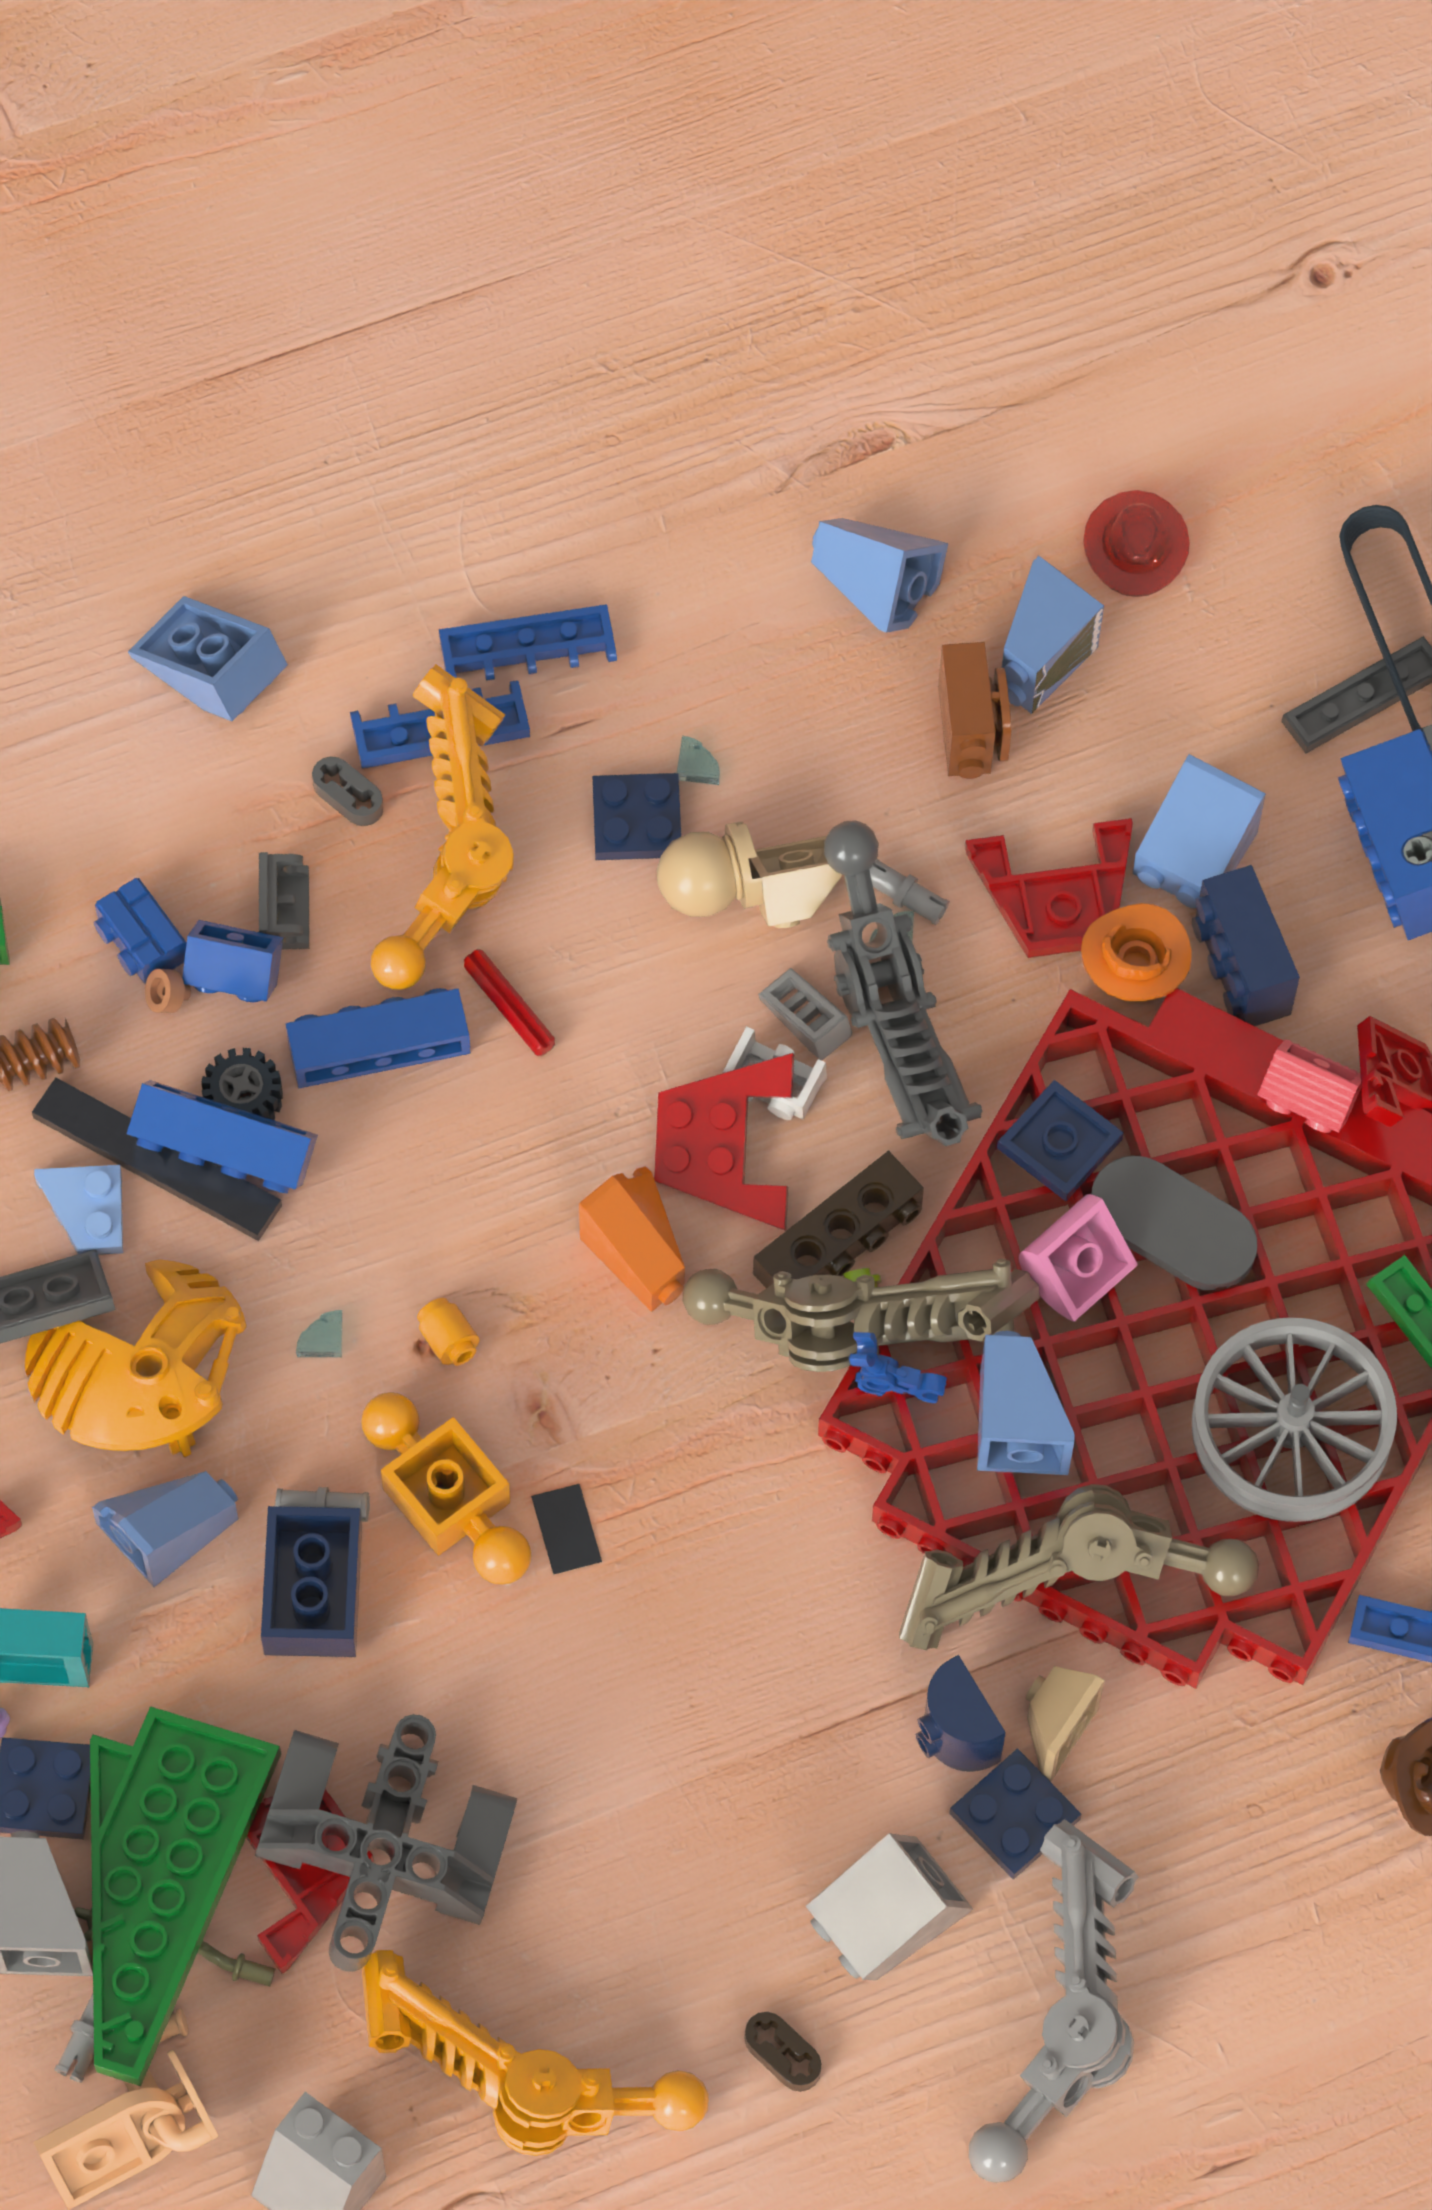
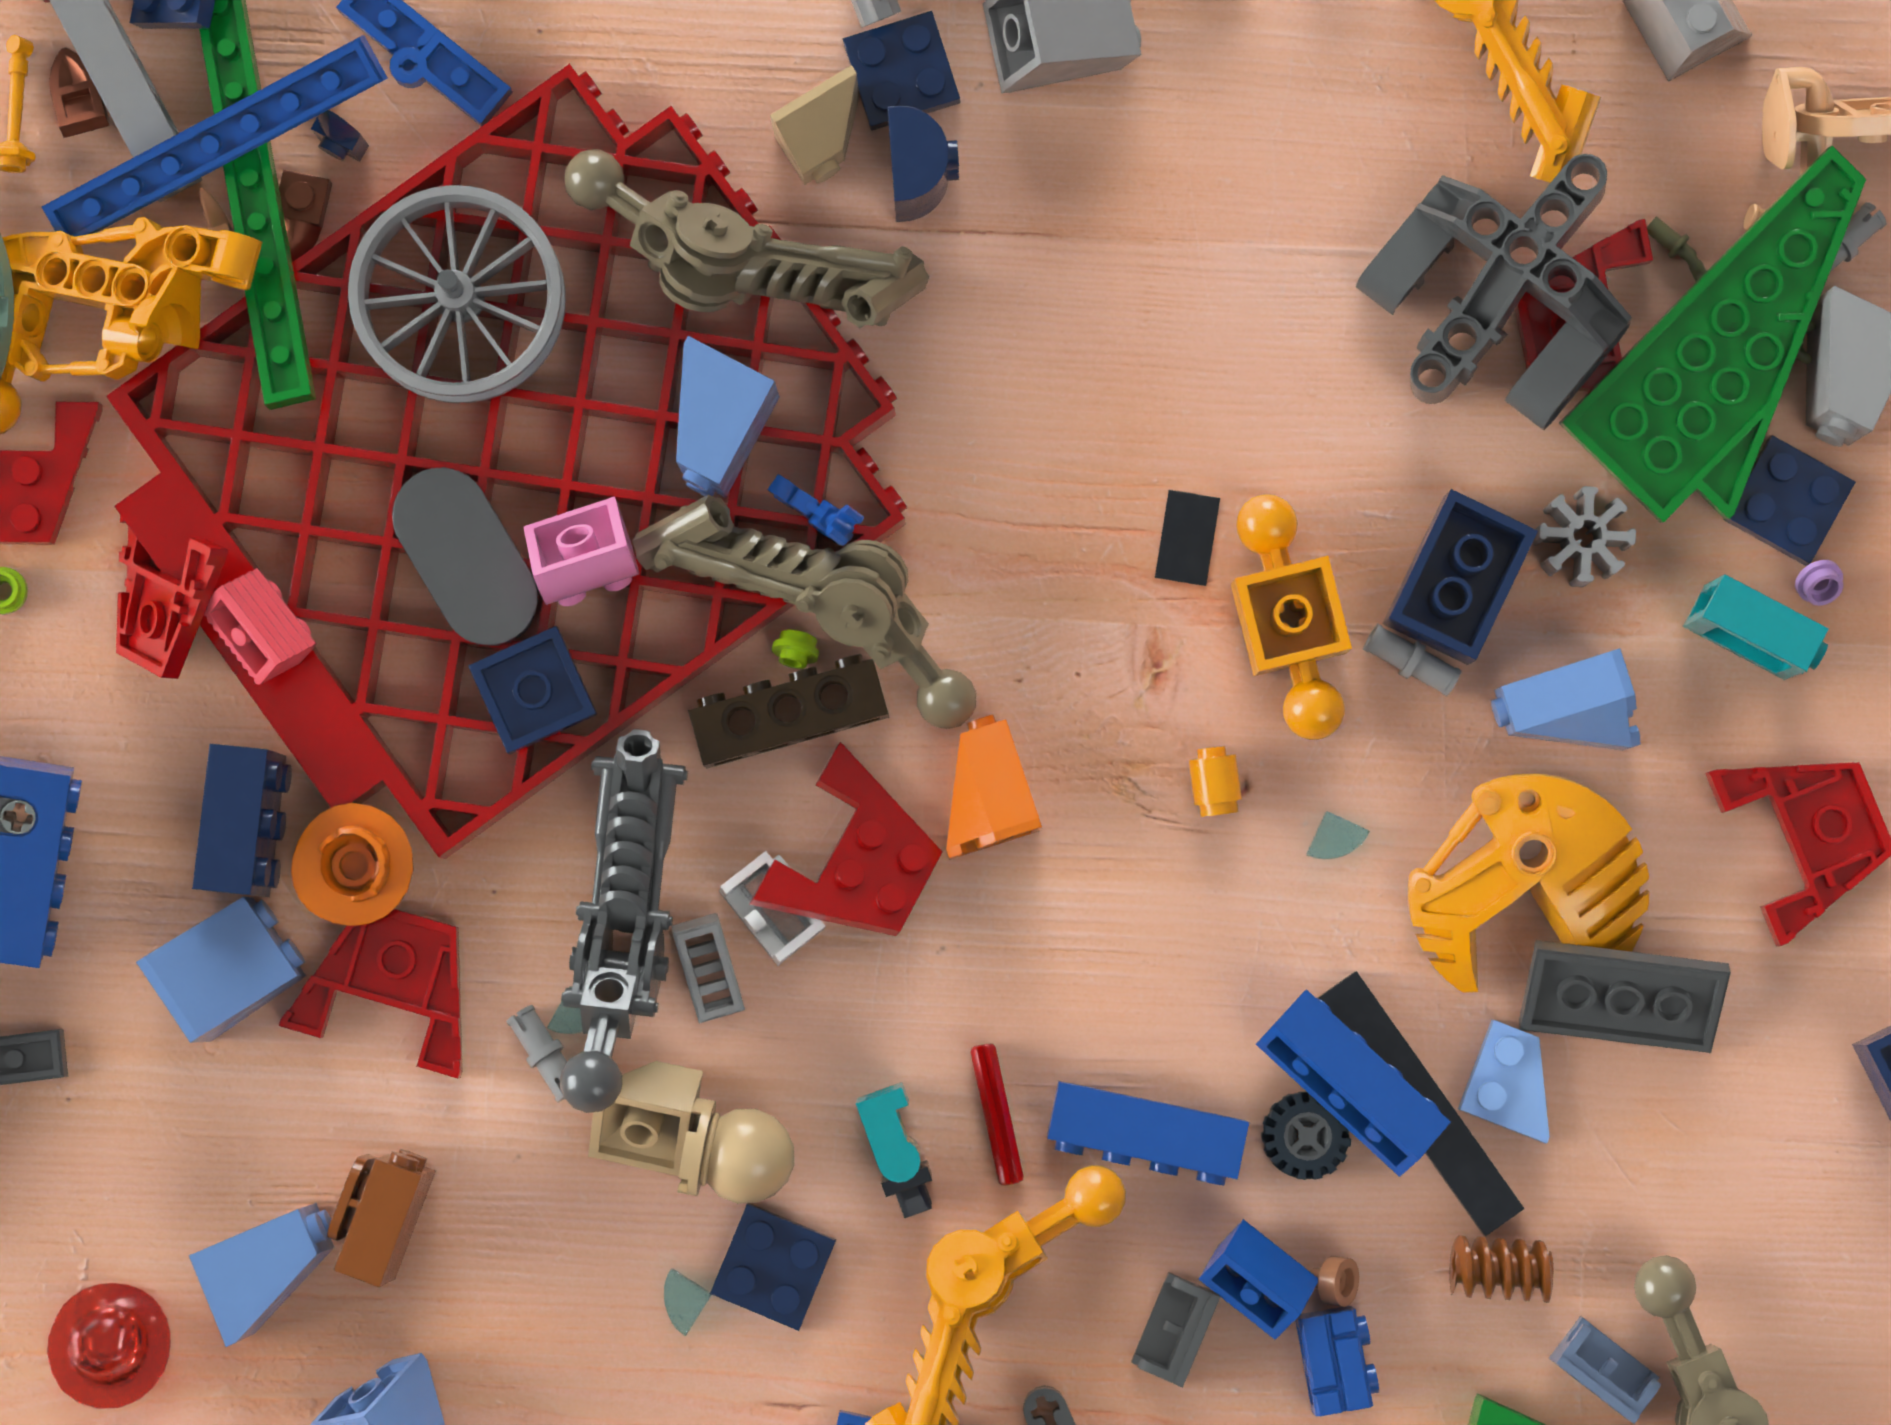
camera: 150 degrees left, 20 degrees up
(232, 1662) = (1595, 550): none -> light grey gear
(581, 932) = (894, 1150): none -> teal hips

